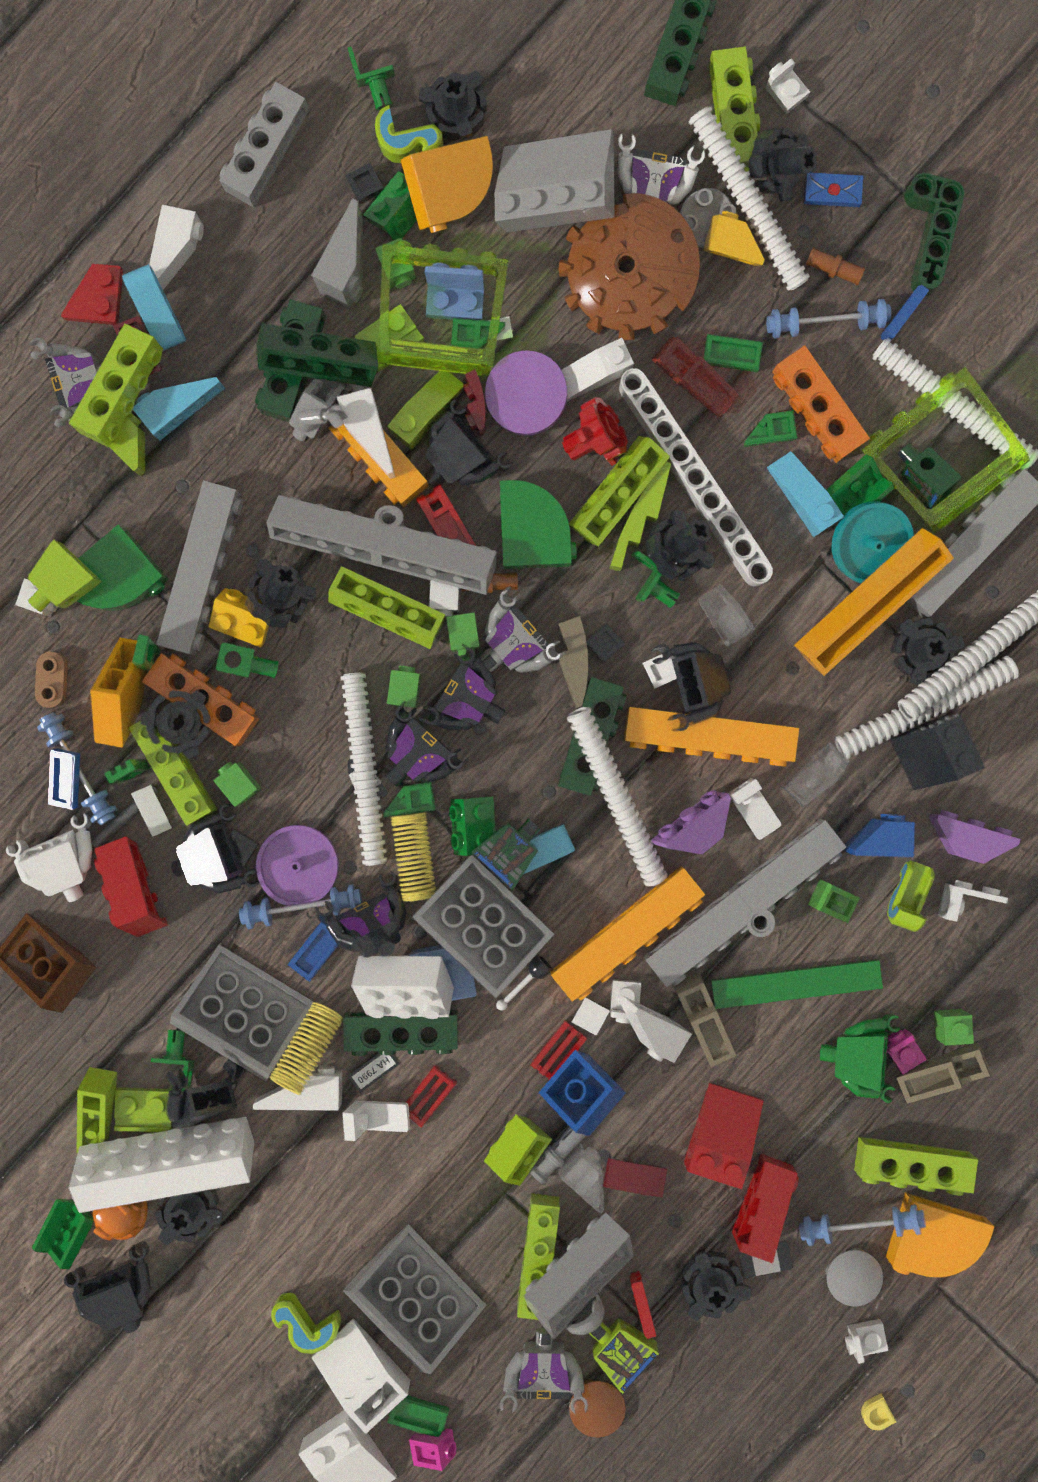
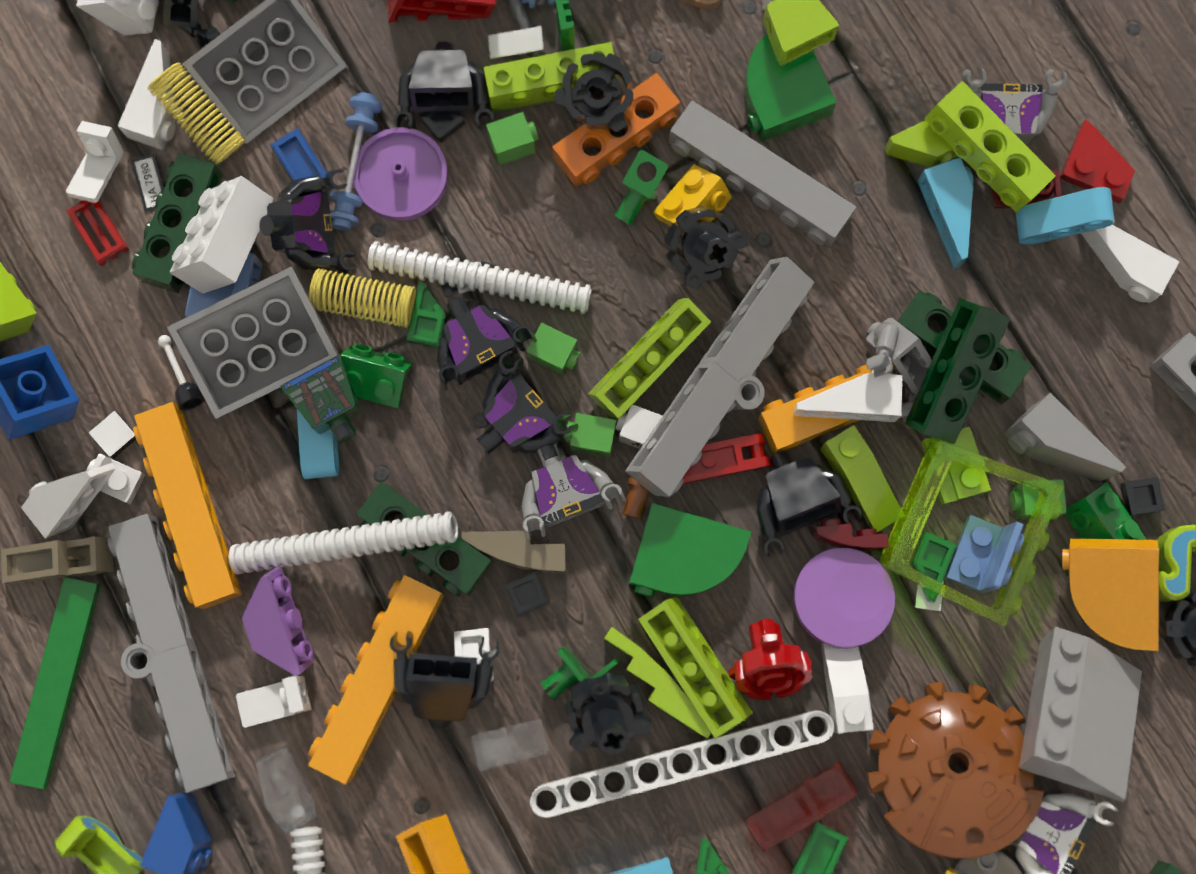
camera: 110 degrees right, 10 degrees down
(117, 695) = (653, 44): light orange brick -> none
(144, 652) = (685, 82): green tile -> none
(544, 1070) = (74, 363): red tile -> none
(833, 901) = (132, 757): bright green slope -> none

